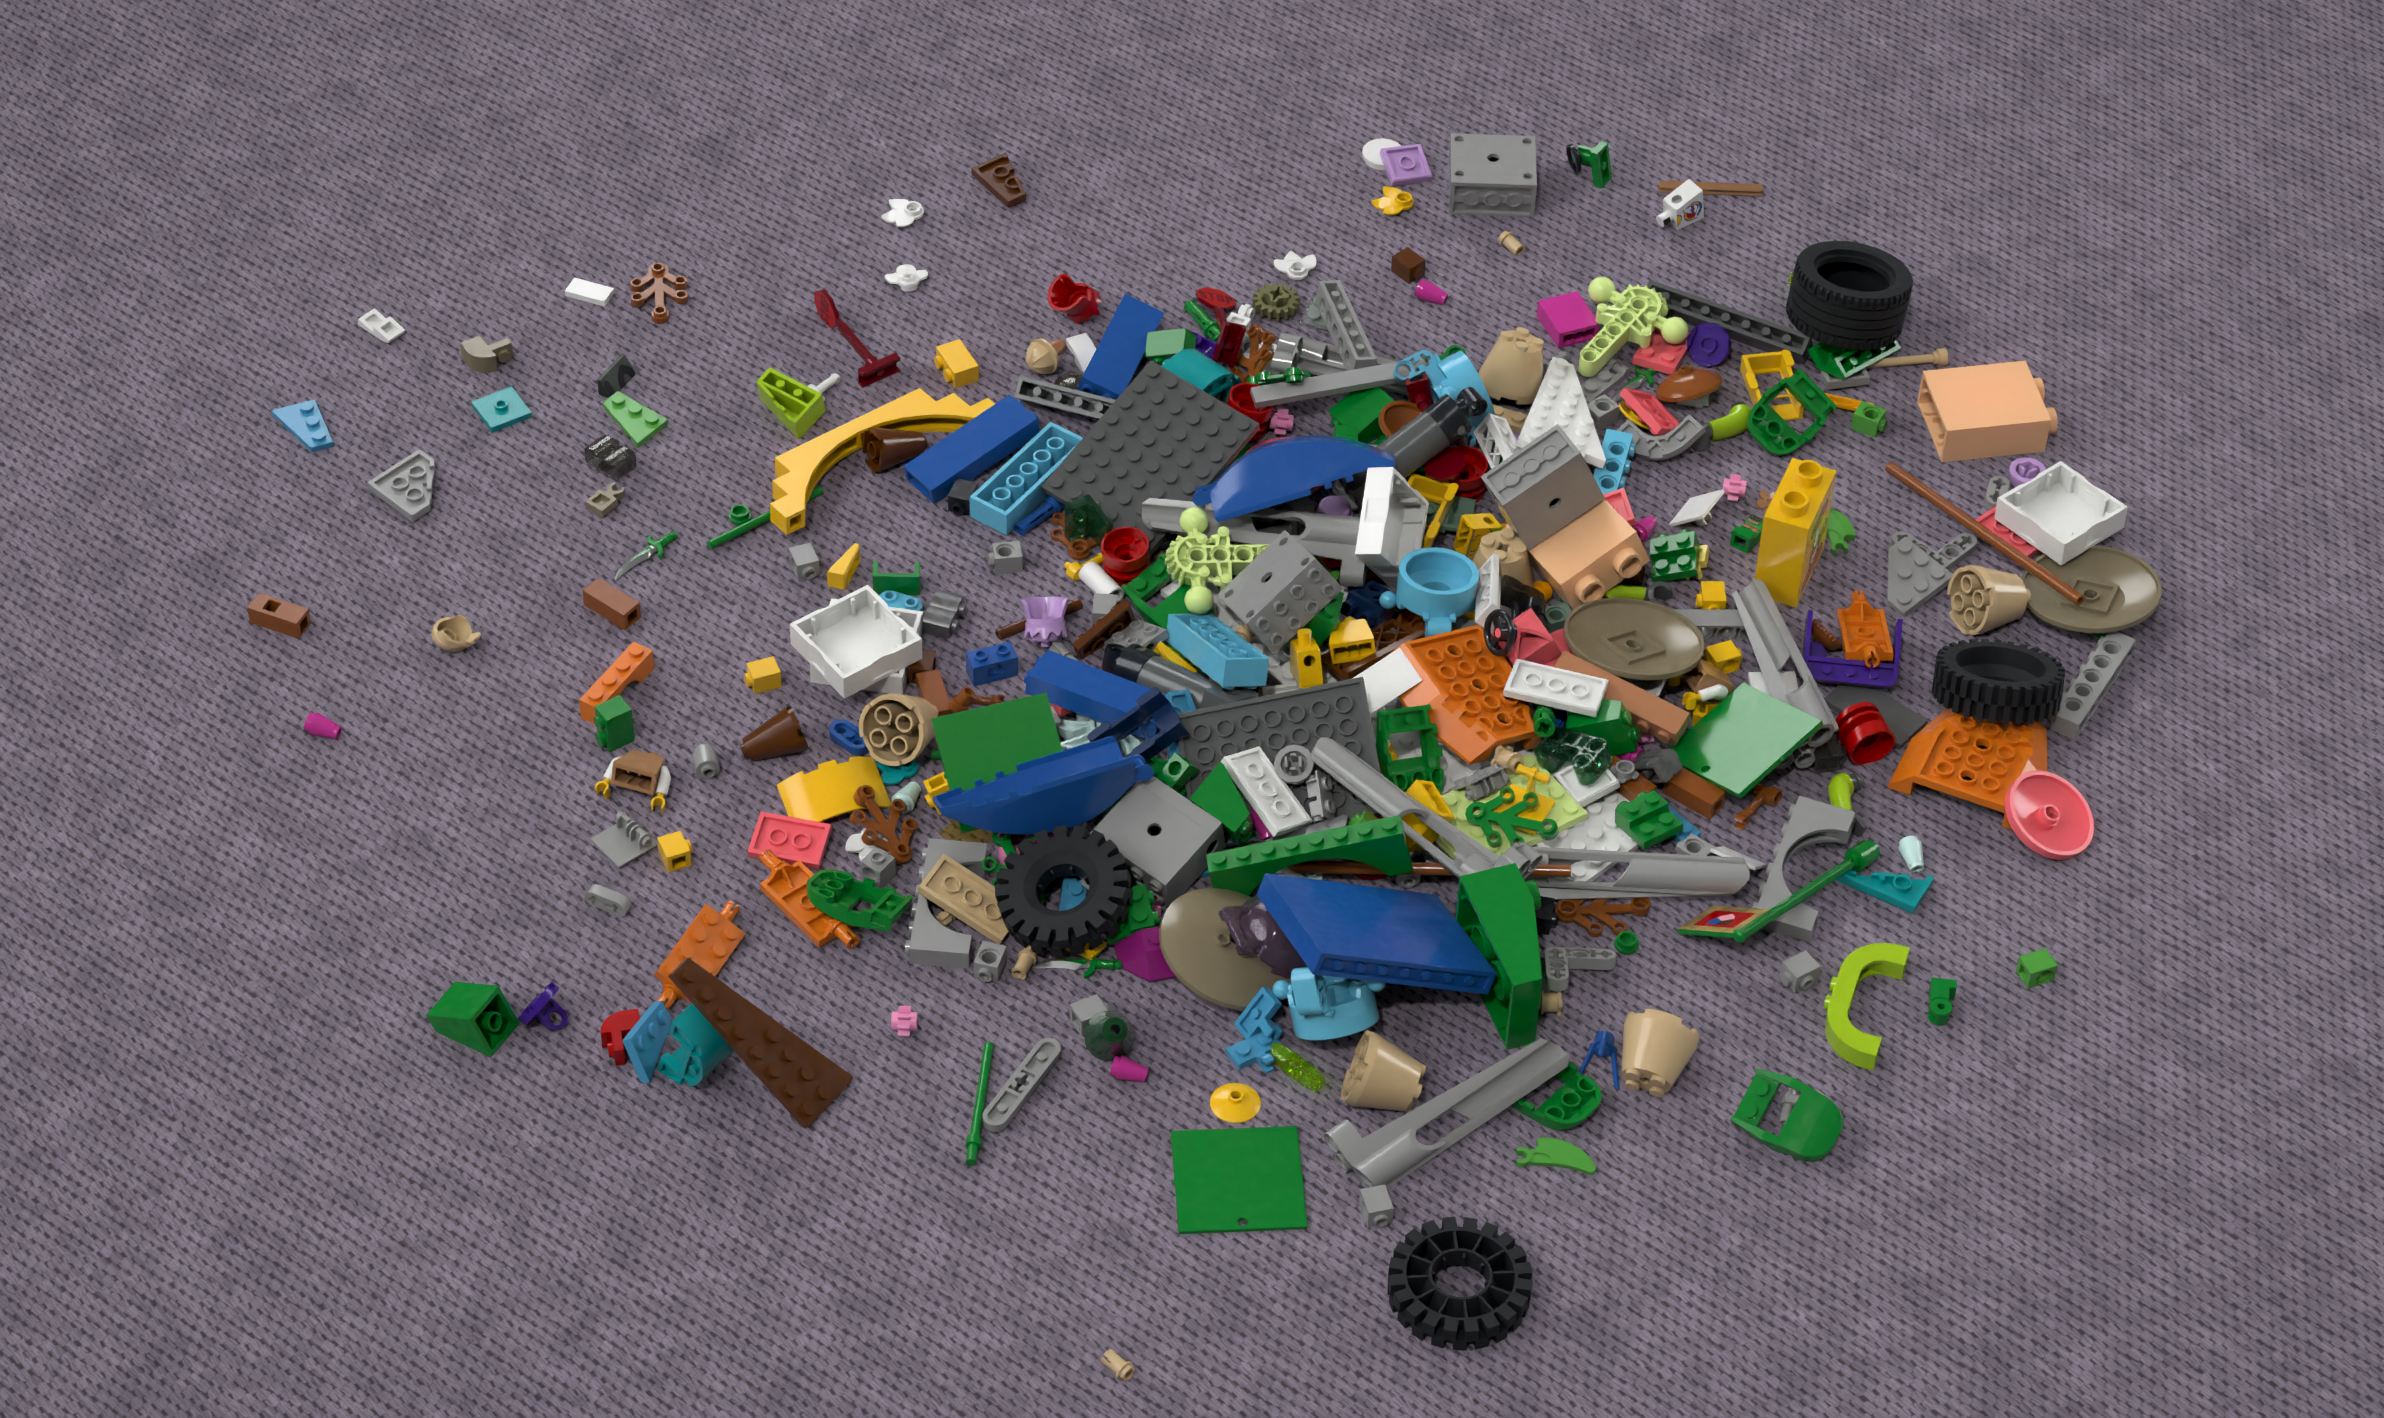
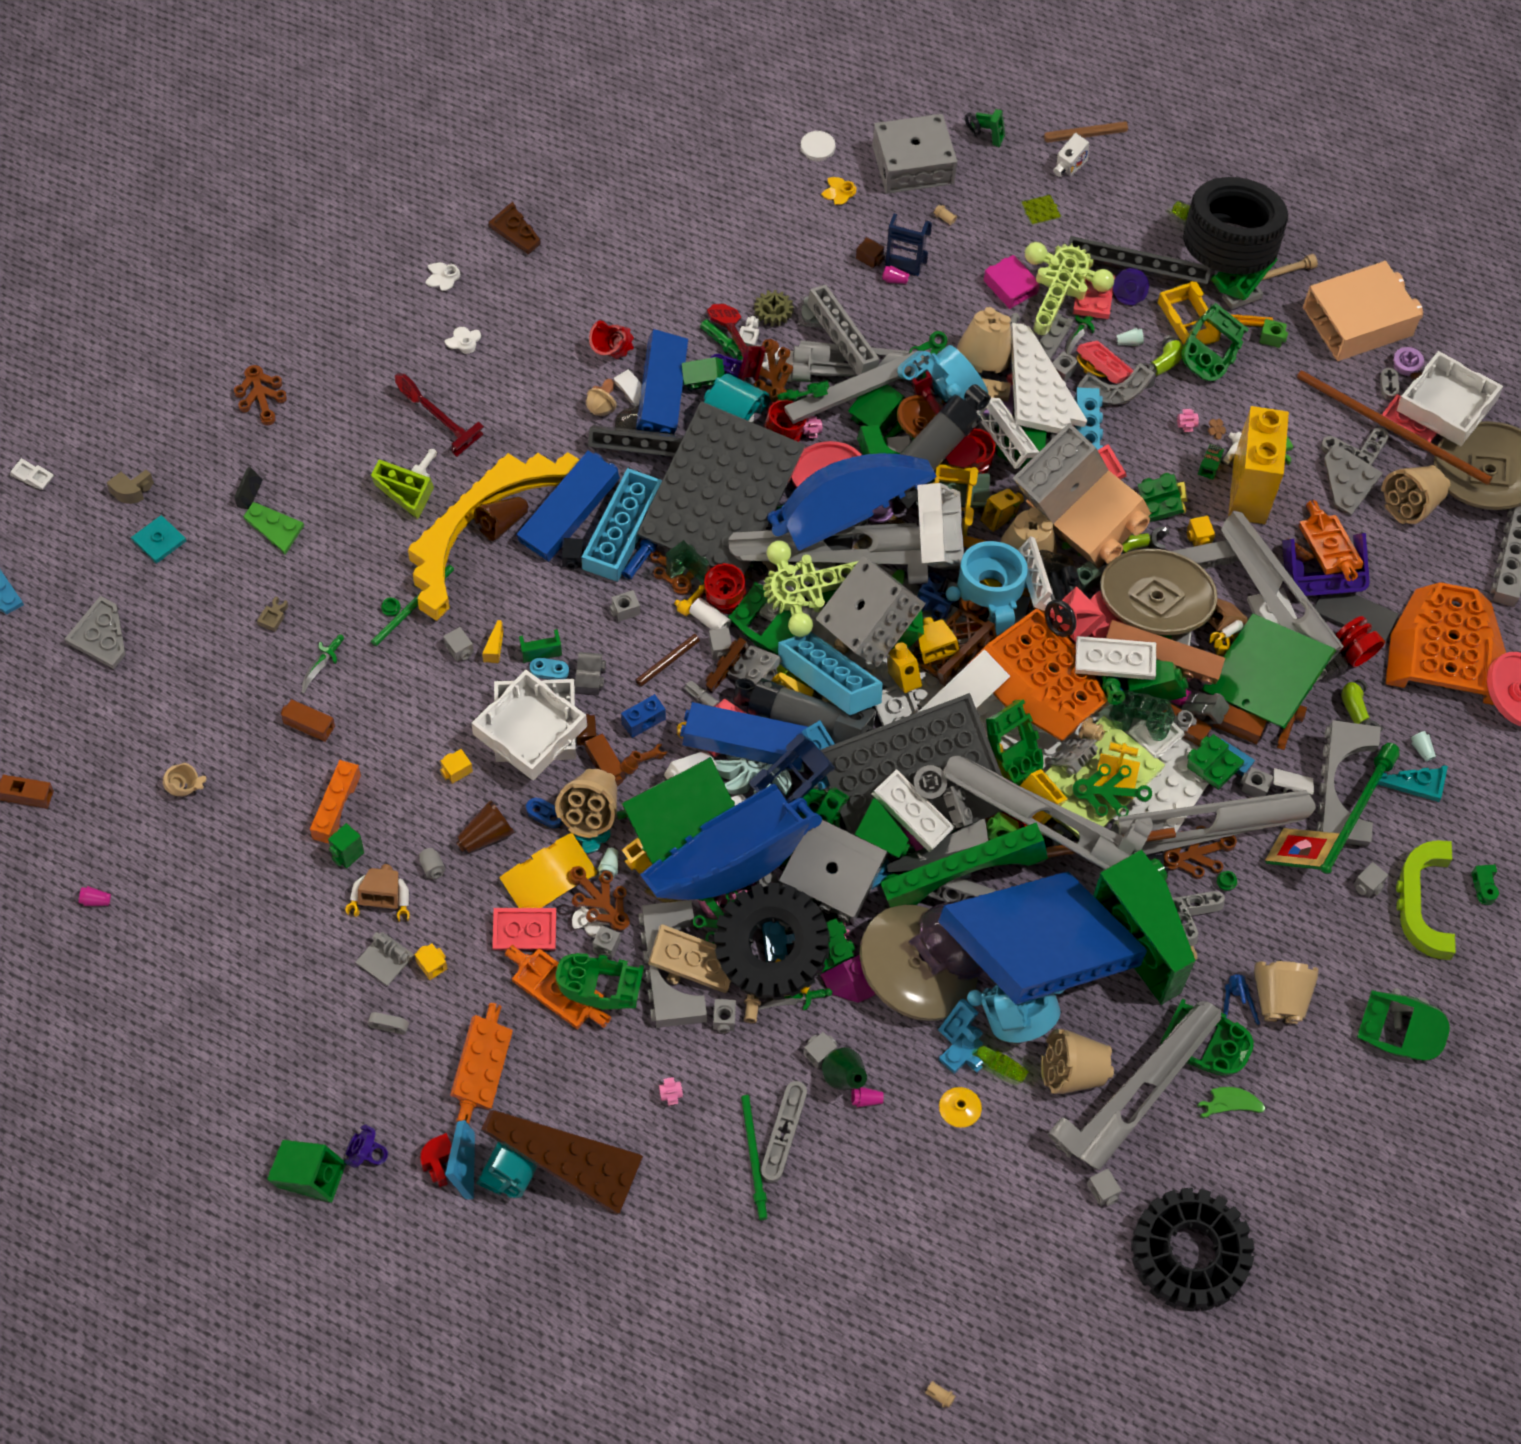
camera: 15 degrees left, 15 degrees up
(589, 292) = (201, 405): white tile -> none
(610, 457) = (266, 571): clear smoke brick -> none
(956, 364) = (530, 420): yellow brick -> none
(1045, 618) = (676, 663): lavender hat -> none
(1238, 1177) = (984, 1182): green piece -> none
(1294, 266) = (776, 267): white plate -> none
(1405, 164) = (840, 153): lavender tile -> none
(1454, 244) = (908, 236): none -> dark blue piece
(1545, 588) = (1065, 548): light orange plate -> none
(1630, 256) = (1041, 209): none -> clear neon green piece
(1645, 527) = (1129, 468): dark pink cone -> none
(1688, 384) = (1126, 329): dark orange dish -> none
(1697, 509) = (1165, 446): white piece -> none
(1724, 656) = (1227, 586): yellow brick -> none
(1998, 681) = (1456, 553): black tyre -> none

